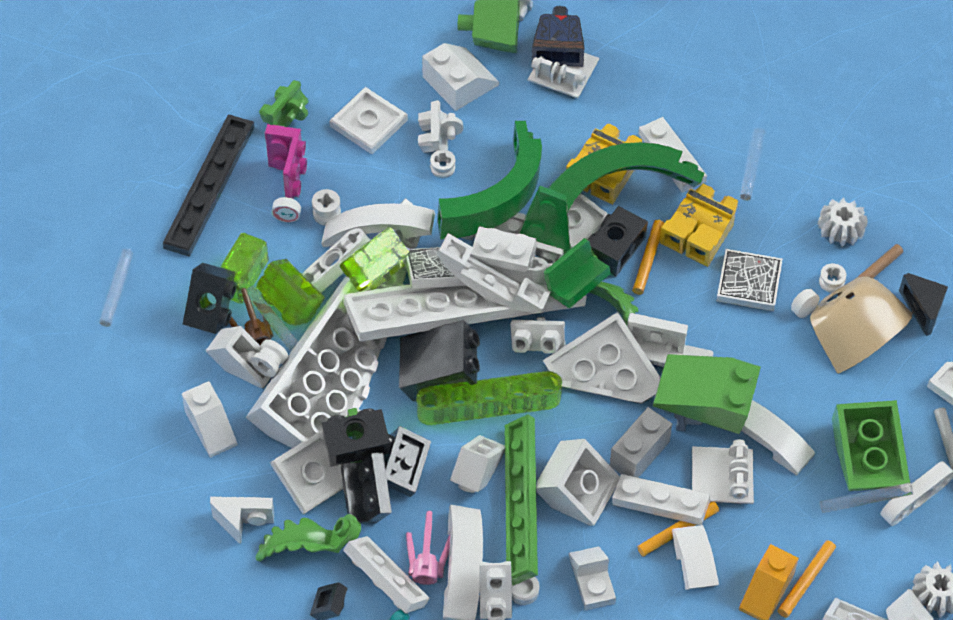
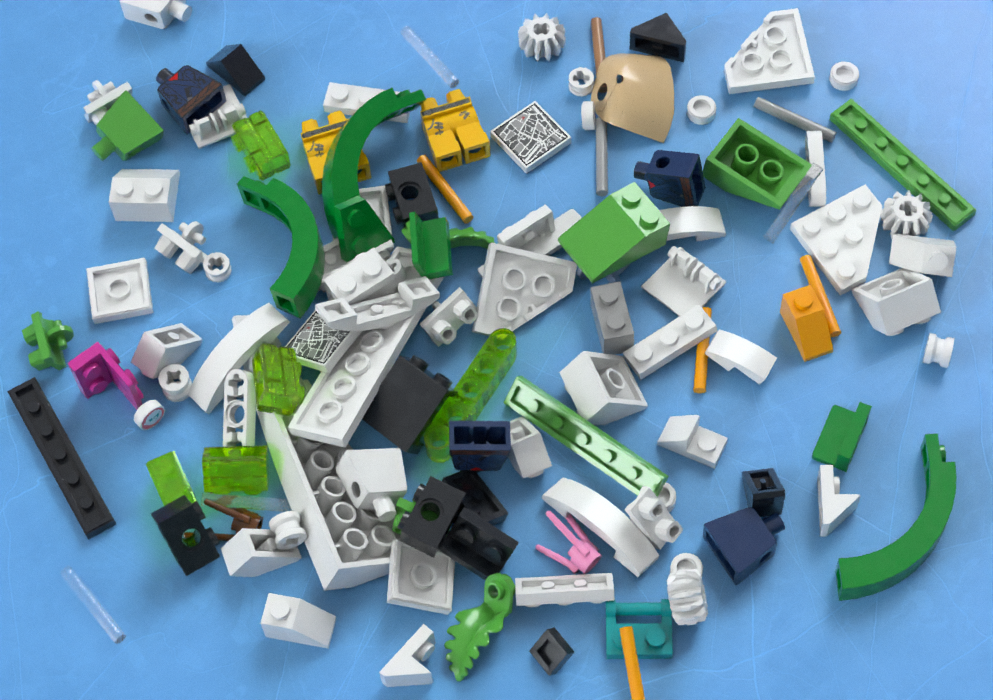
camera: 45 degrees left, 5 degrees up
(346, 179) = (164, 347): none -> white slope
(358, 382) = (374, 479): none -> white torso
(443, 429) = (479, 444): none -> dark blue torso
(565, 114) = (261, 146): none -> clear neon green brick
(616, 54) = (236, 68): none -> black slope
(779, 340) = (601, 158): none -> light grey bar
(805, 399) = (673, 177): none -> dark blue torso
(876, 558) = (842, 237): none -> white plate
(892, 377) = (701, 110): none -> white tile

